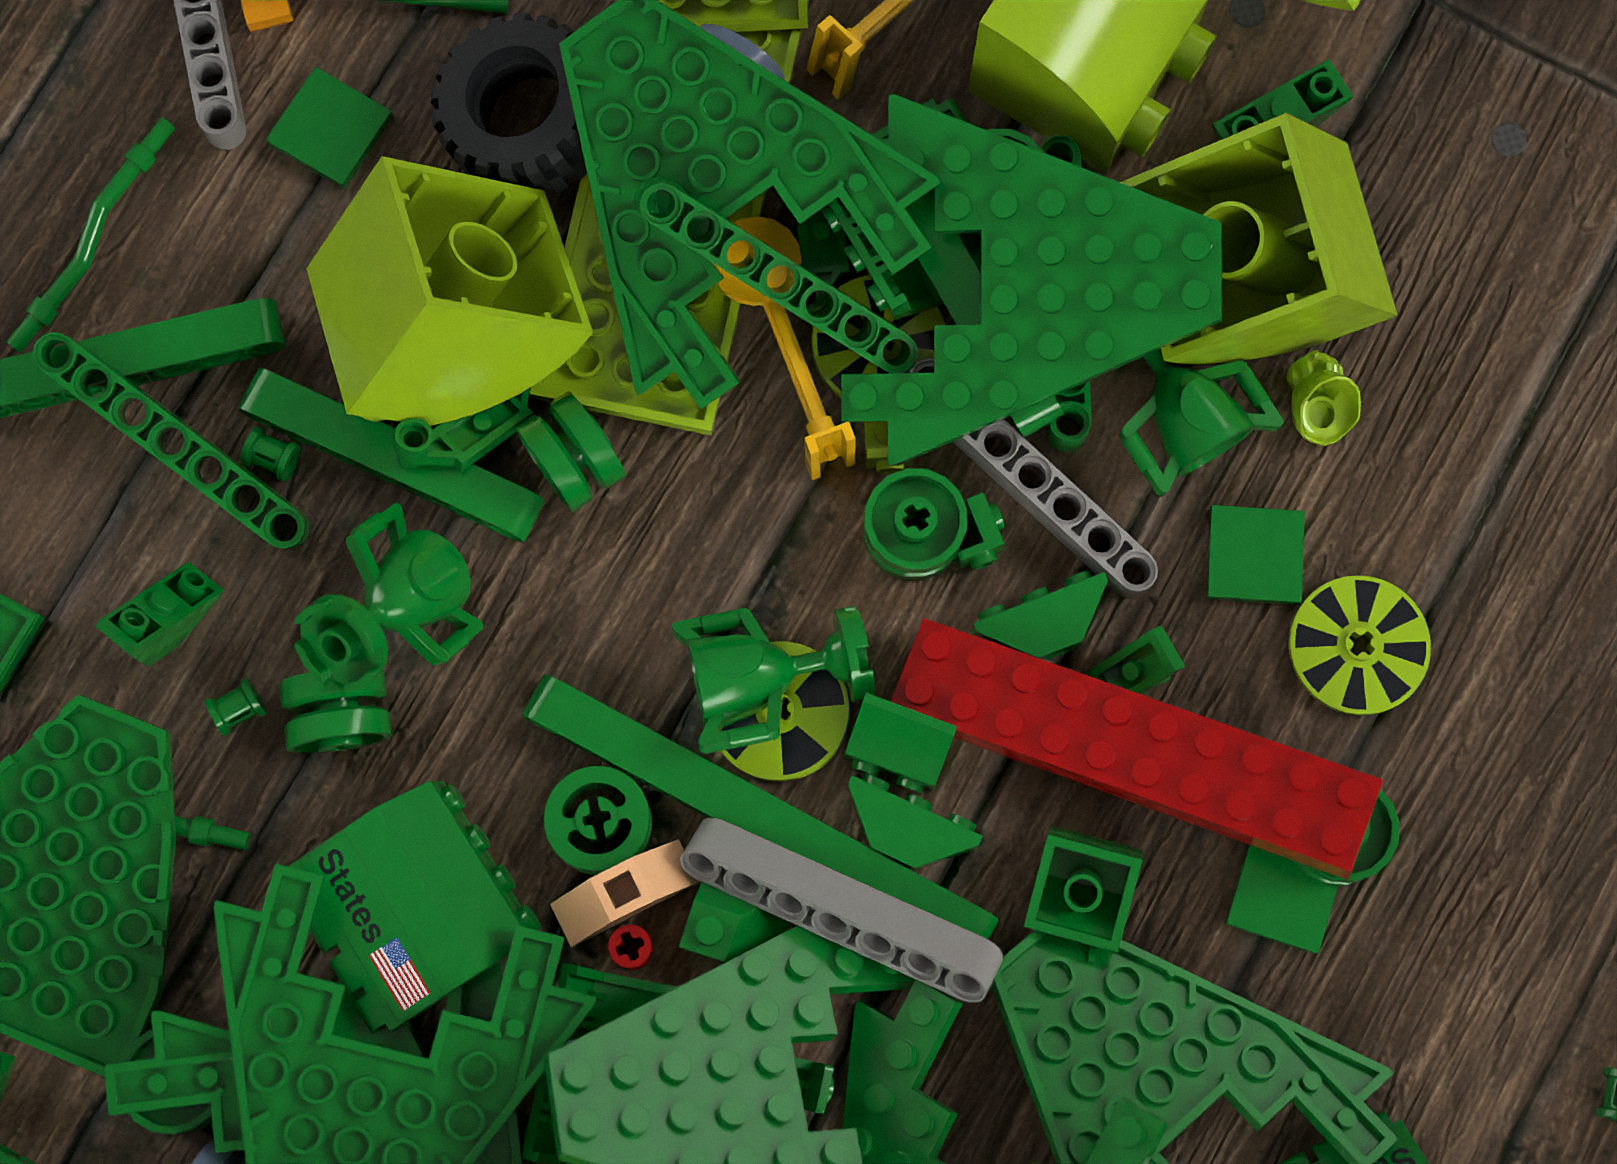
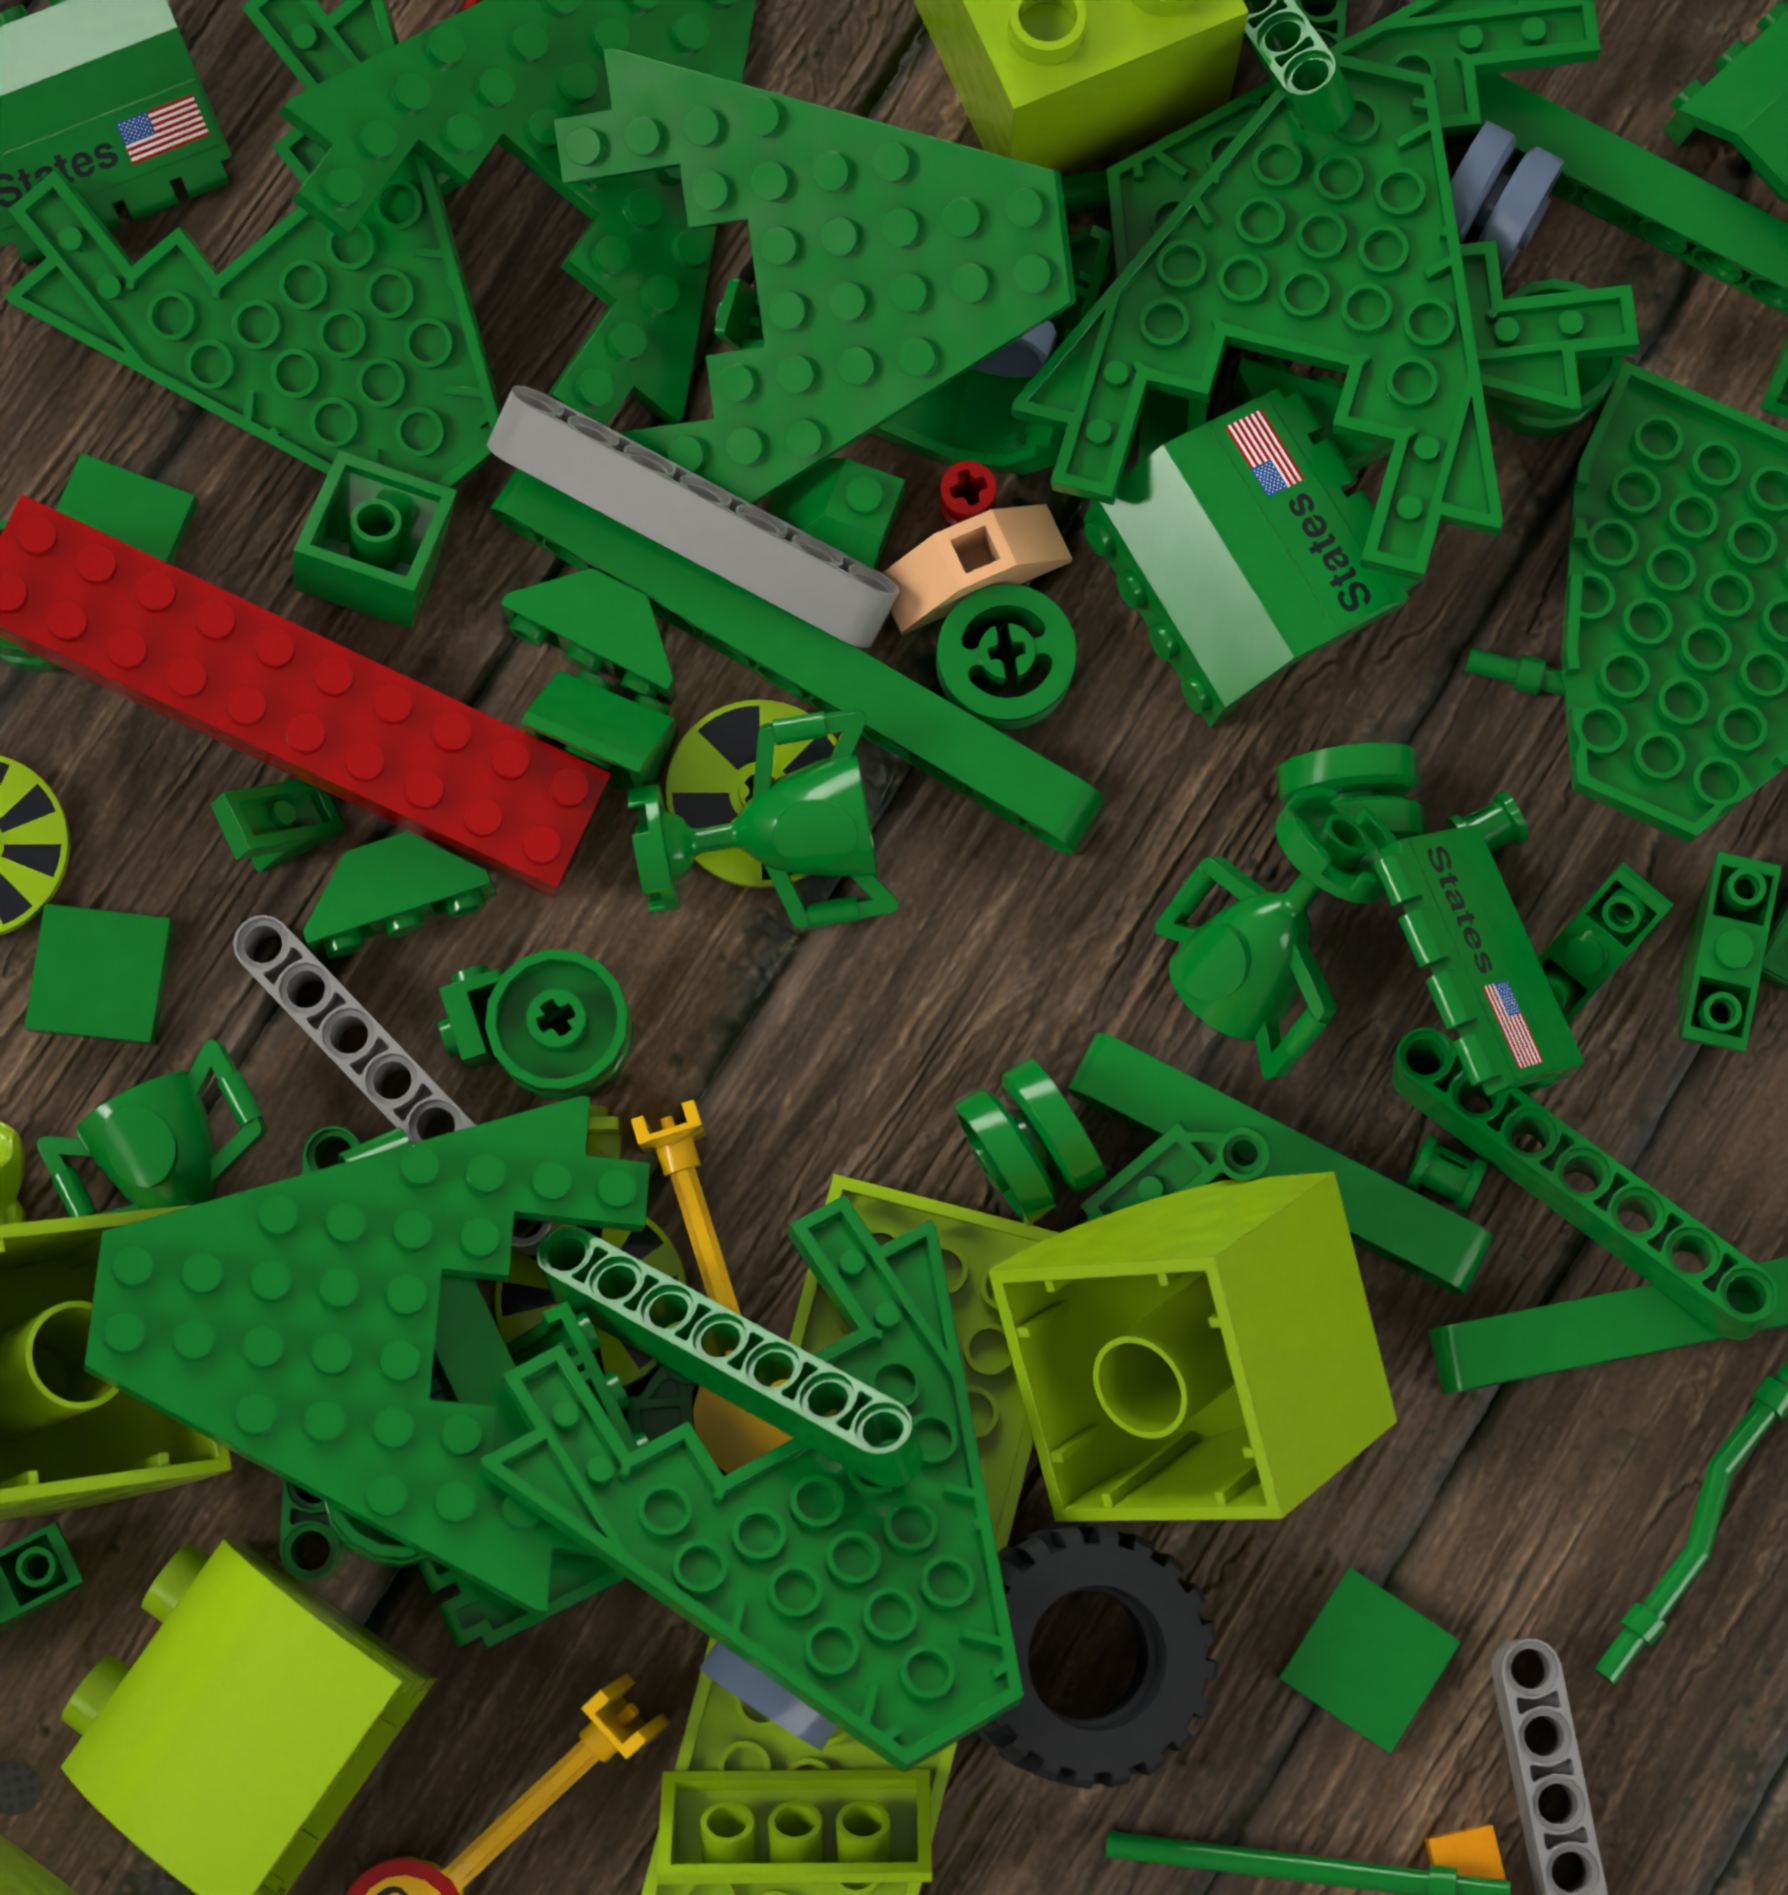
camera: 175 degrees left, 0 degrees up
(61, 613) = (1726, 952): none -> green slope
(242, 572) = (1480, 961): none -> green hinge

